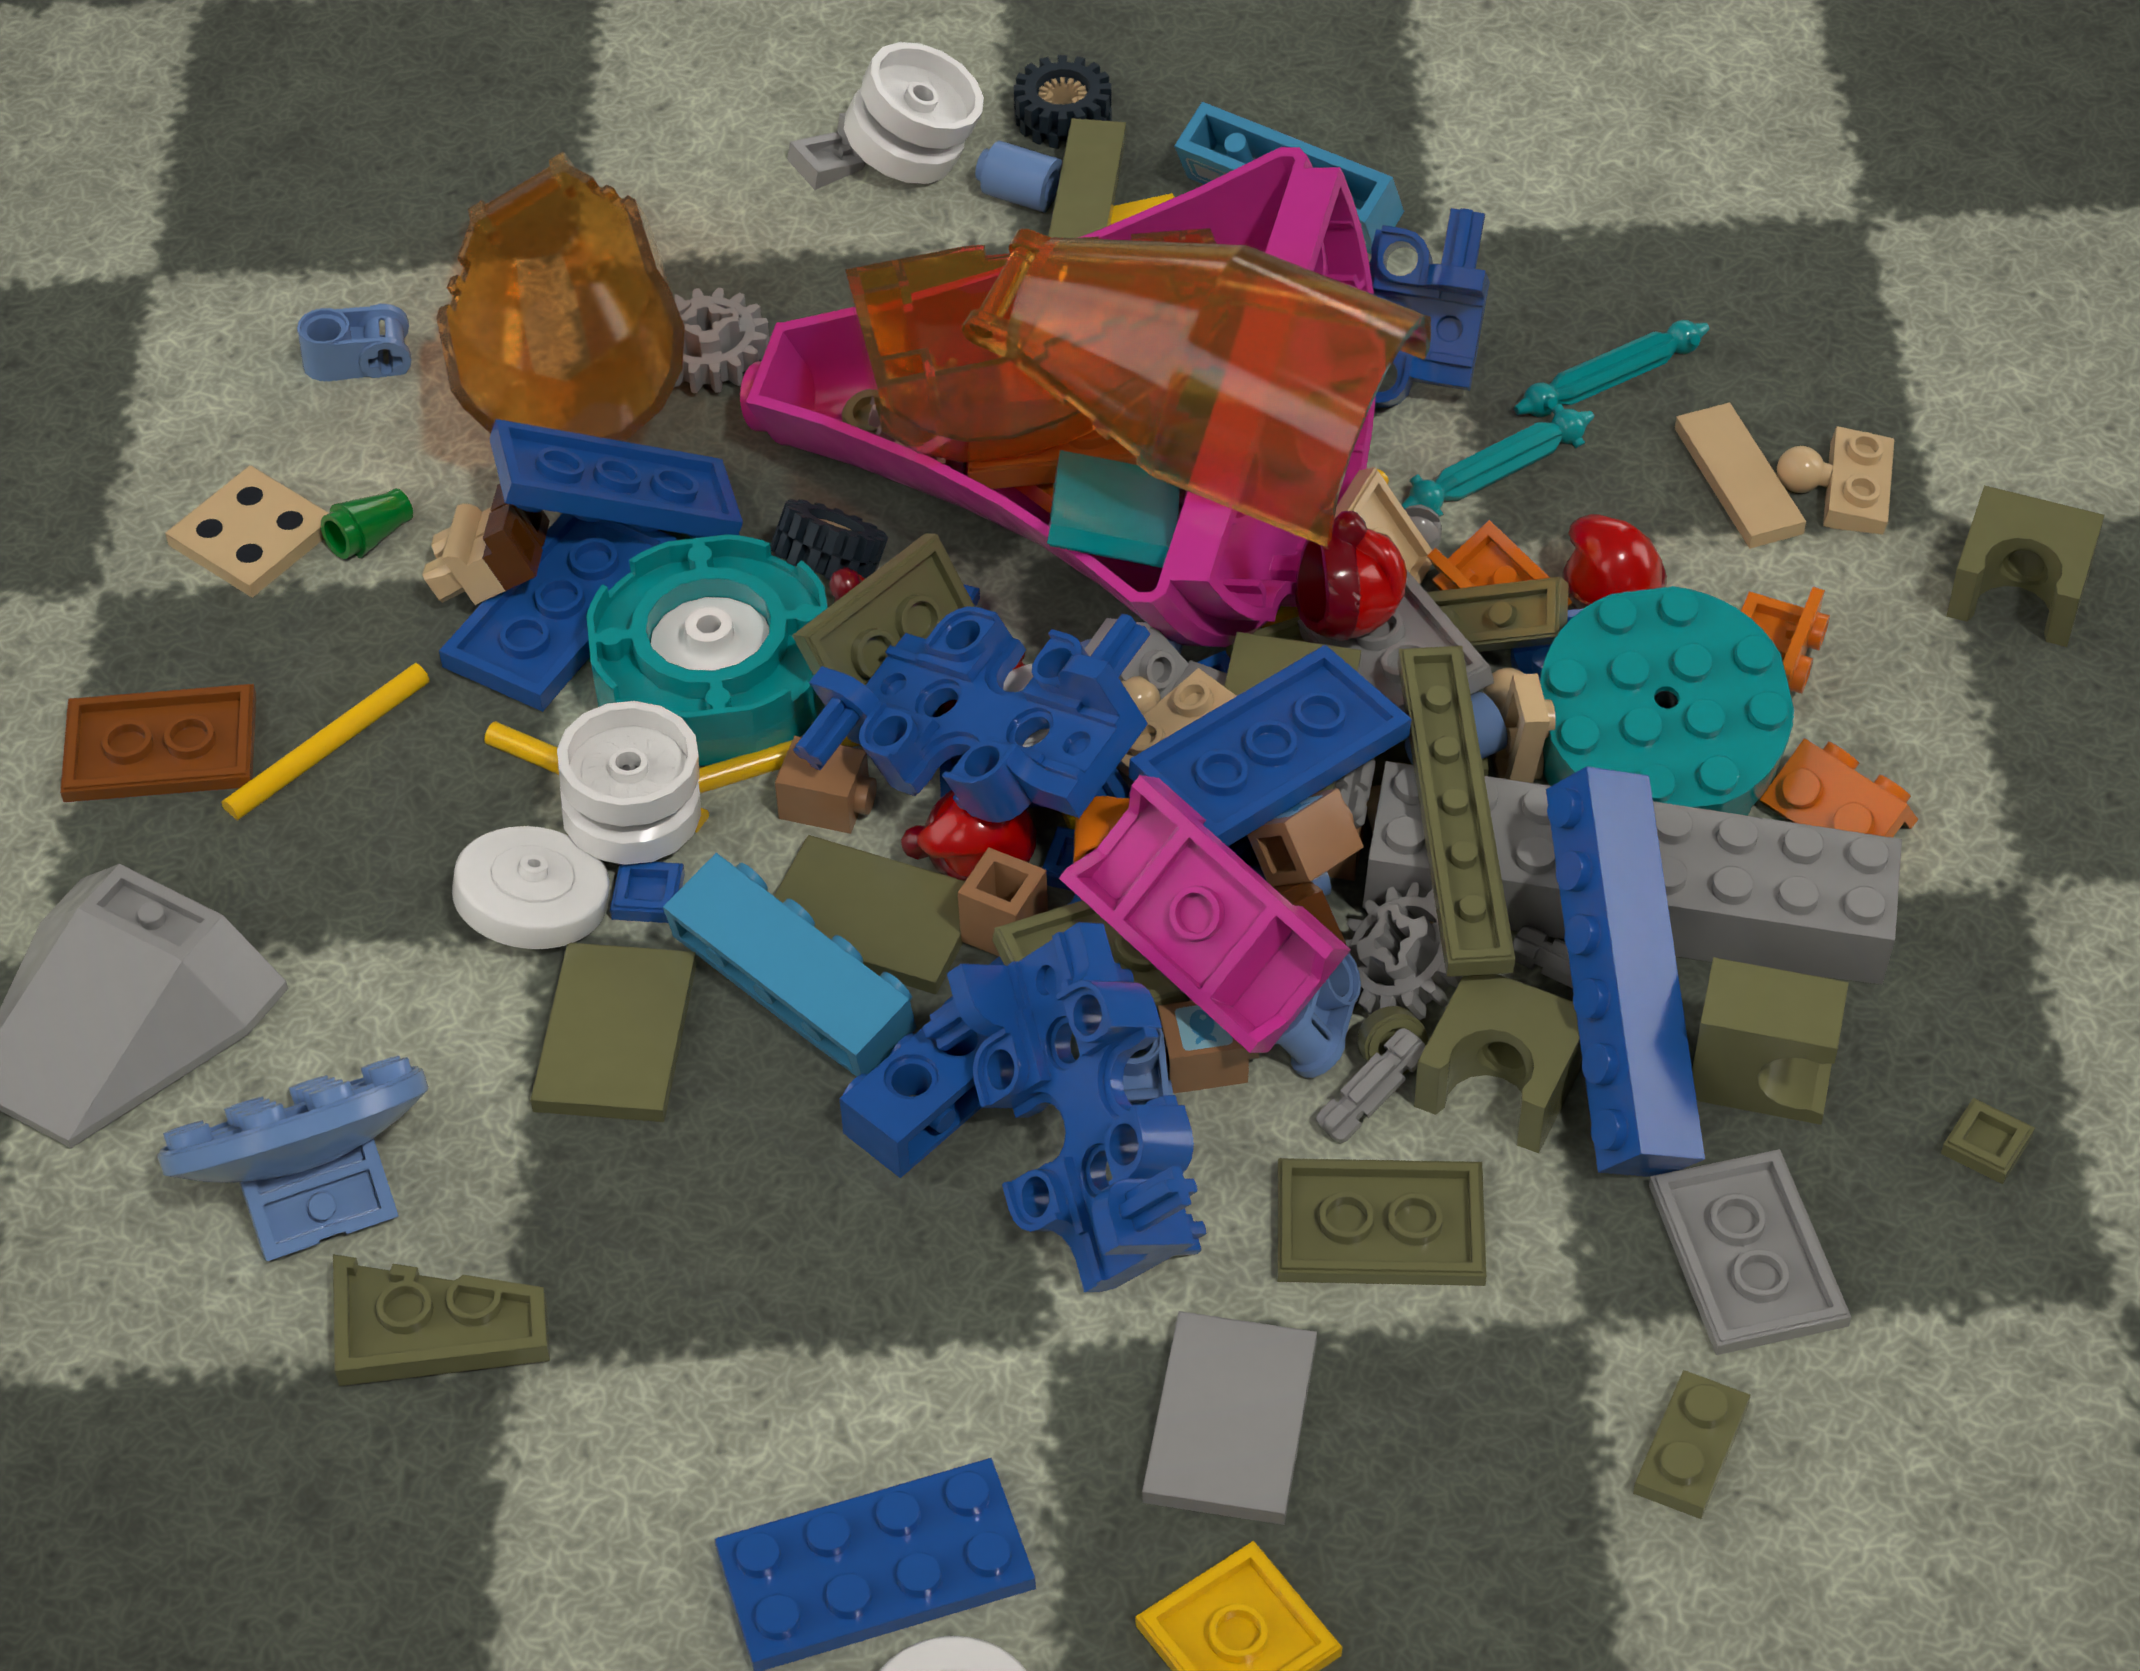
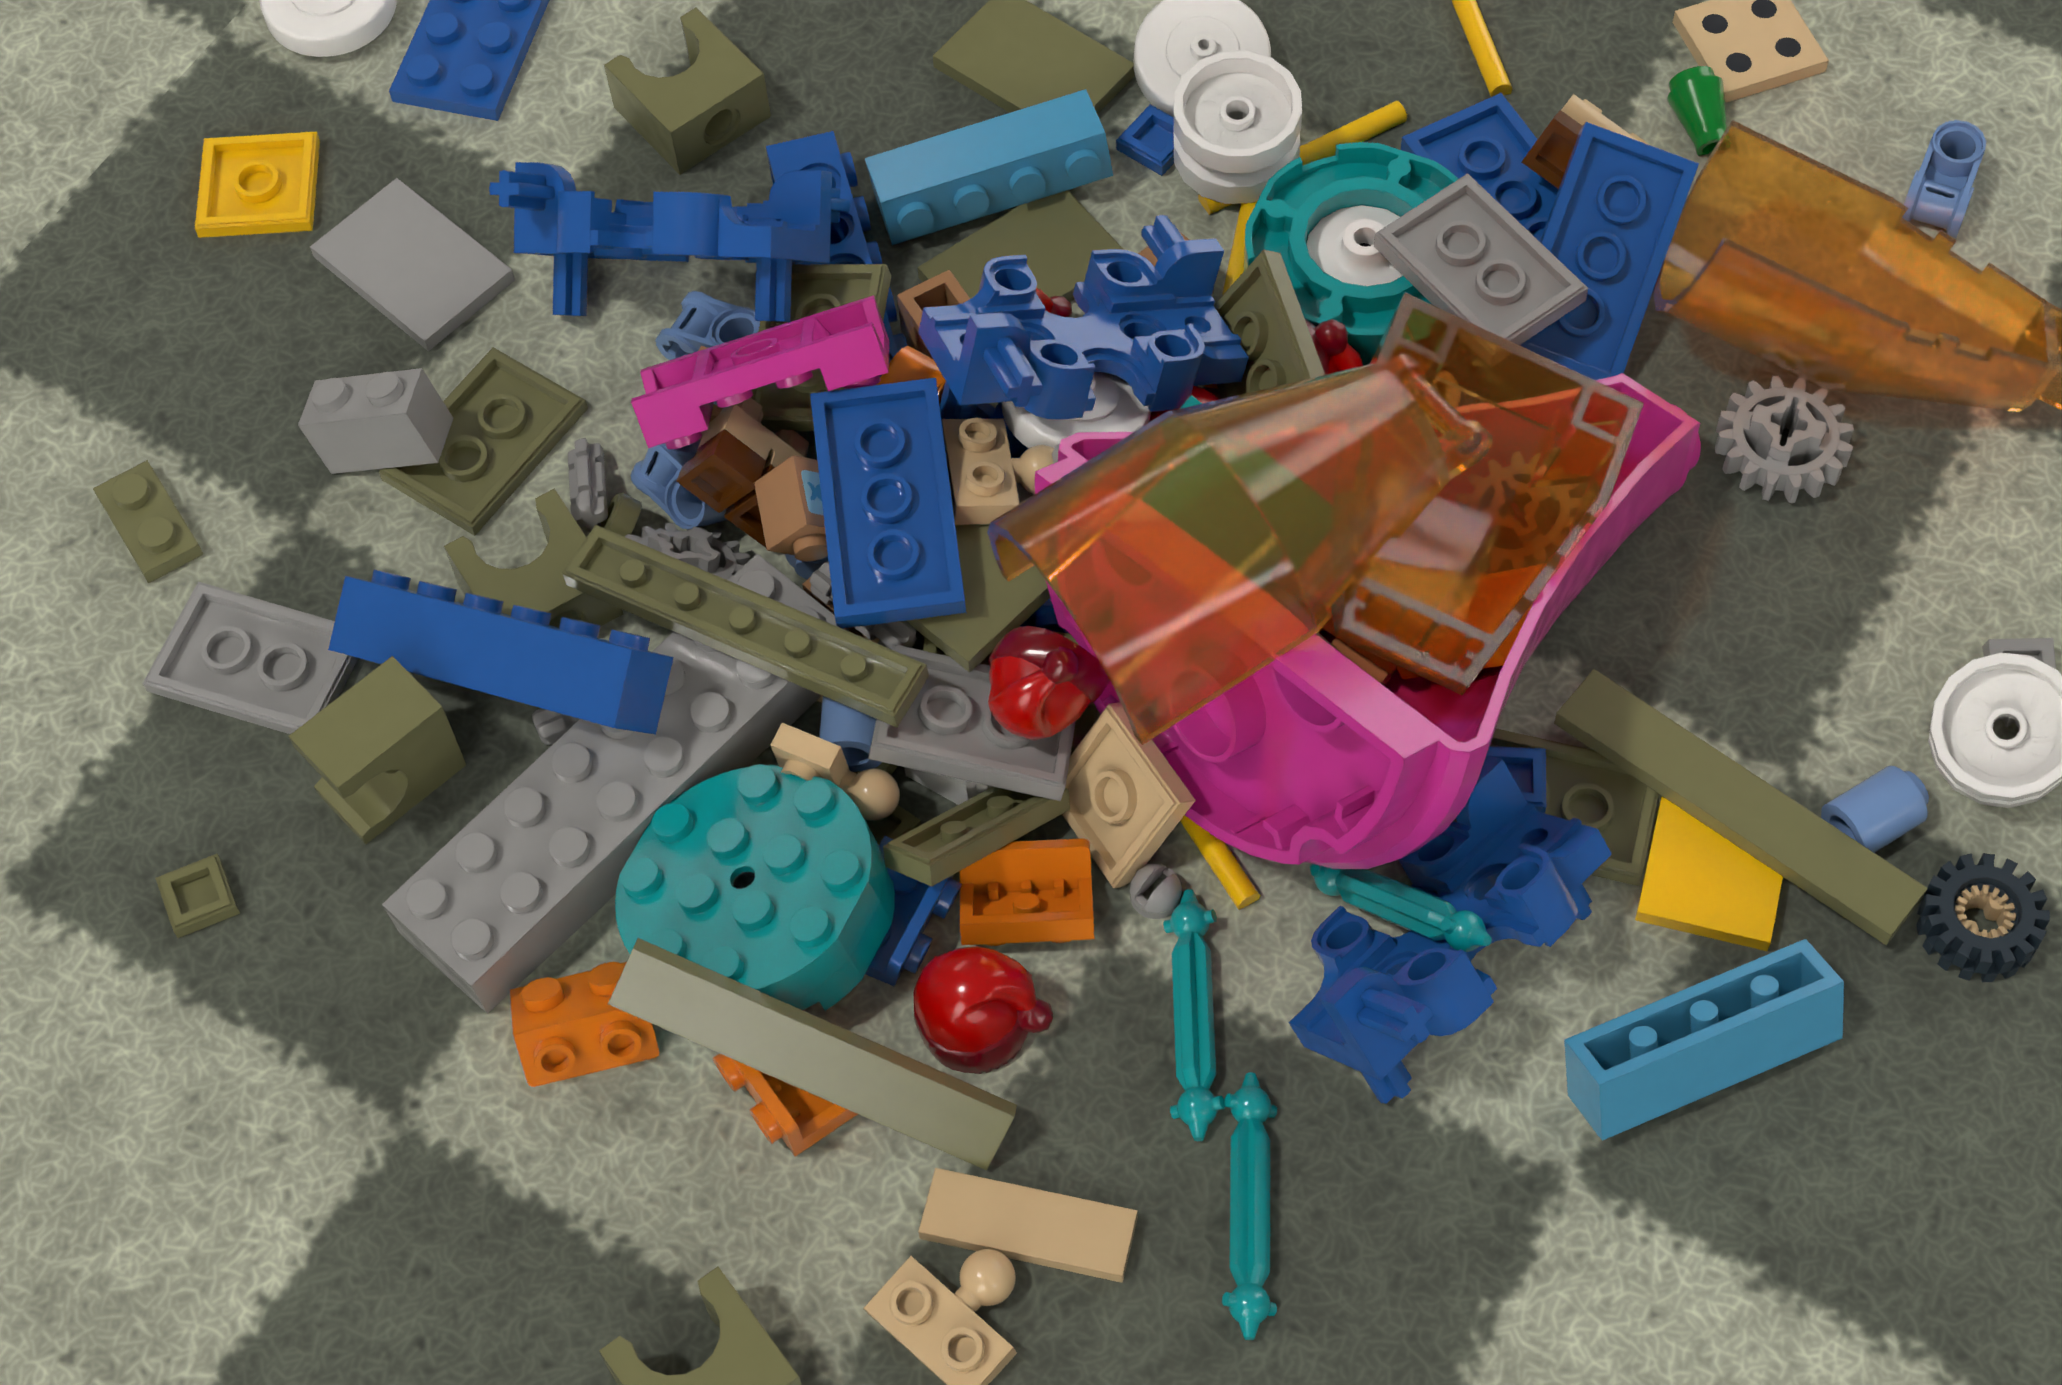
camera: 125 degrees right, 10 degrees up
(696, 528) = (1480, 263): none -> light grey tile
(866, 1248) = (699, 108): none -> olive piece
(1453, 1272) = (376, 421): none -> light grey brick
(1760, 599) = (812, 1054): none -> olive tile

